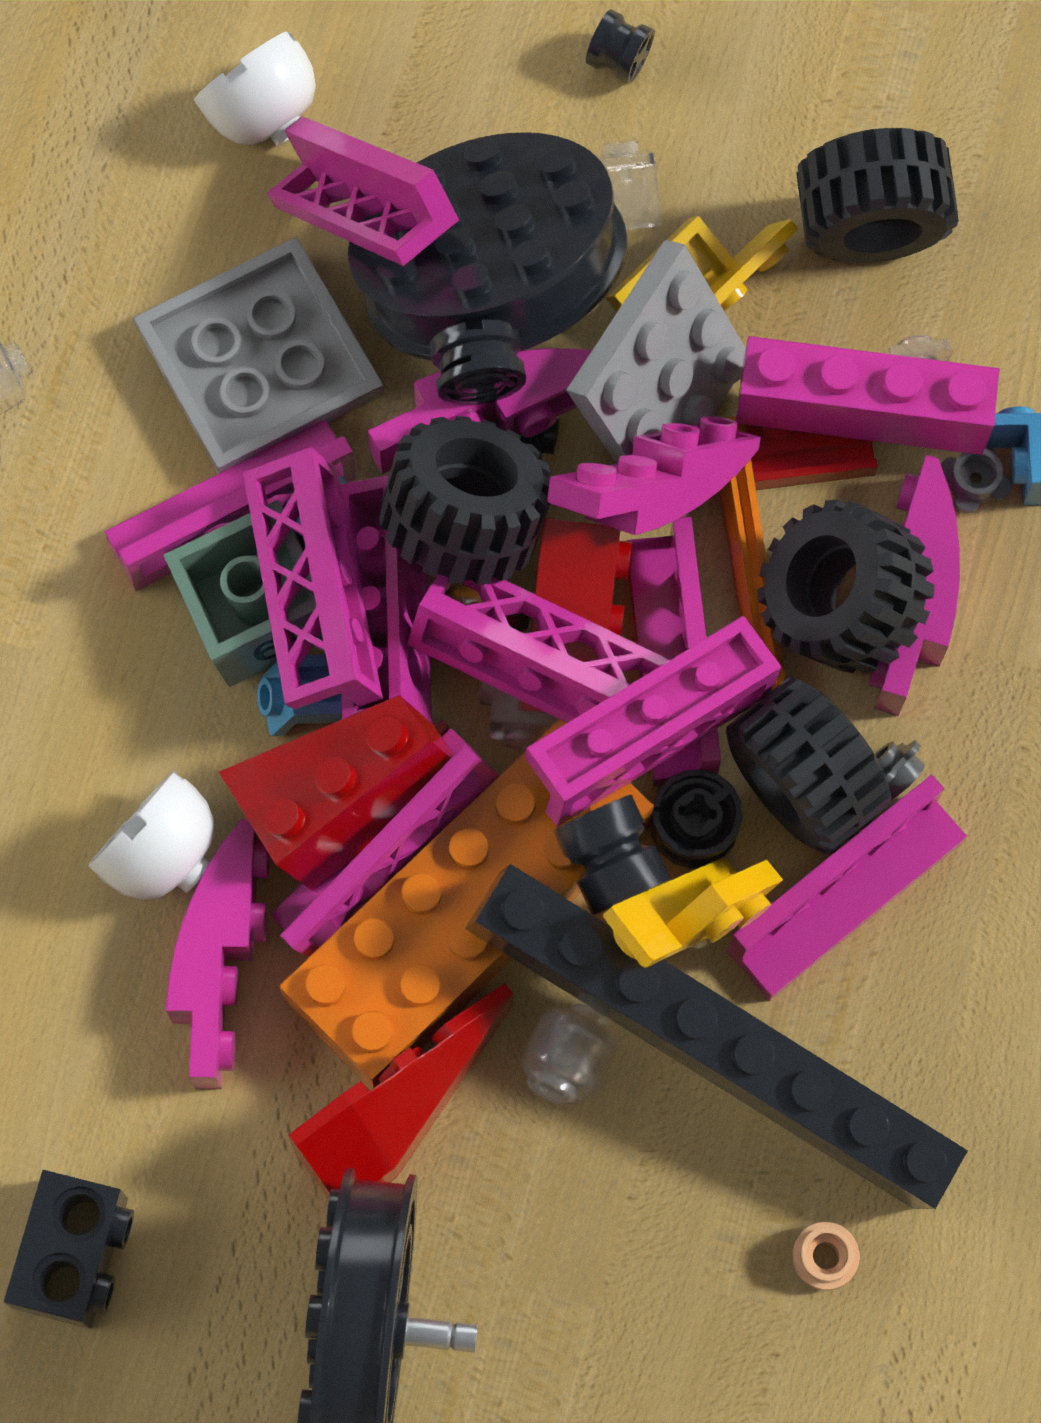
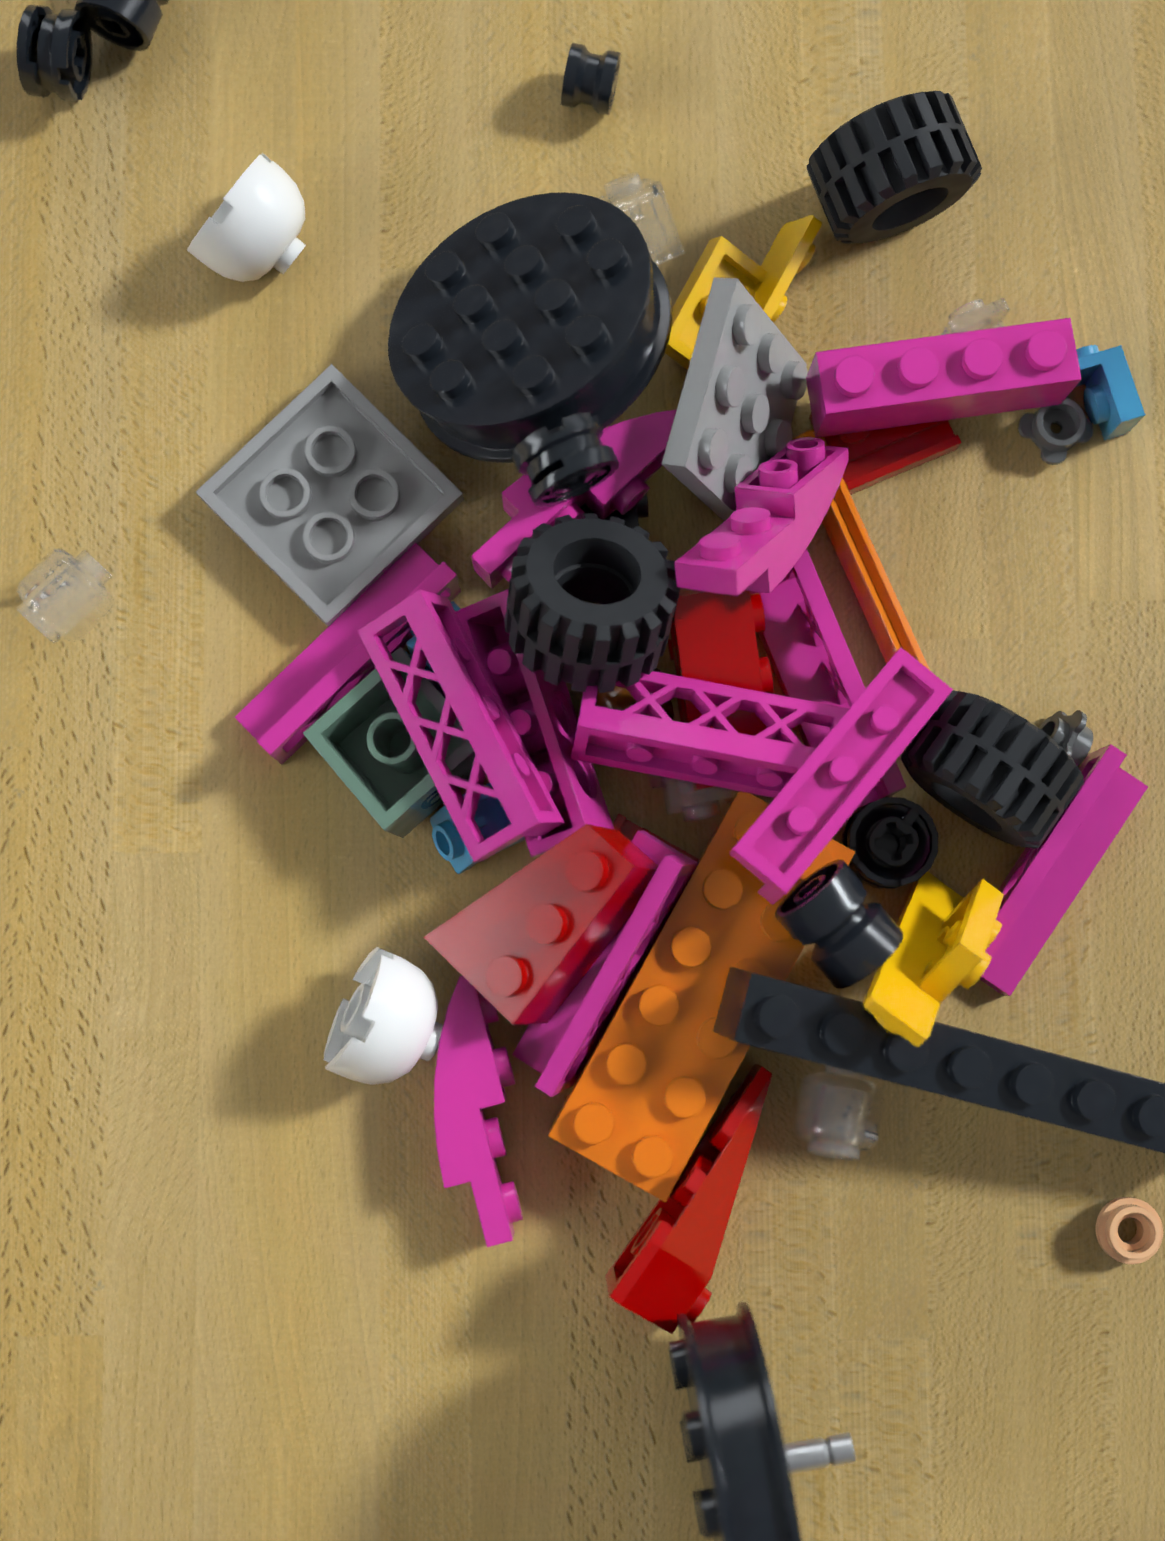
camera: 20 degrees left, 10 degrees up
(50, 1246) = (406, 1439): black brick -> none
(373, 182) = (401, 292): dark pink fence -> none
(884, 598) = (929, 579): black tyre -> none
(934, 522) = (1039, 529): dark pink slope -> none

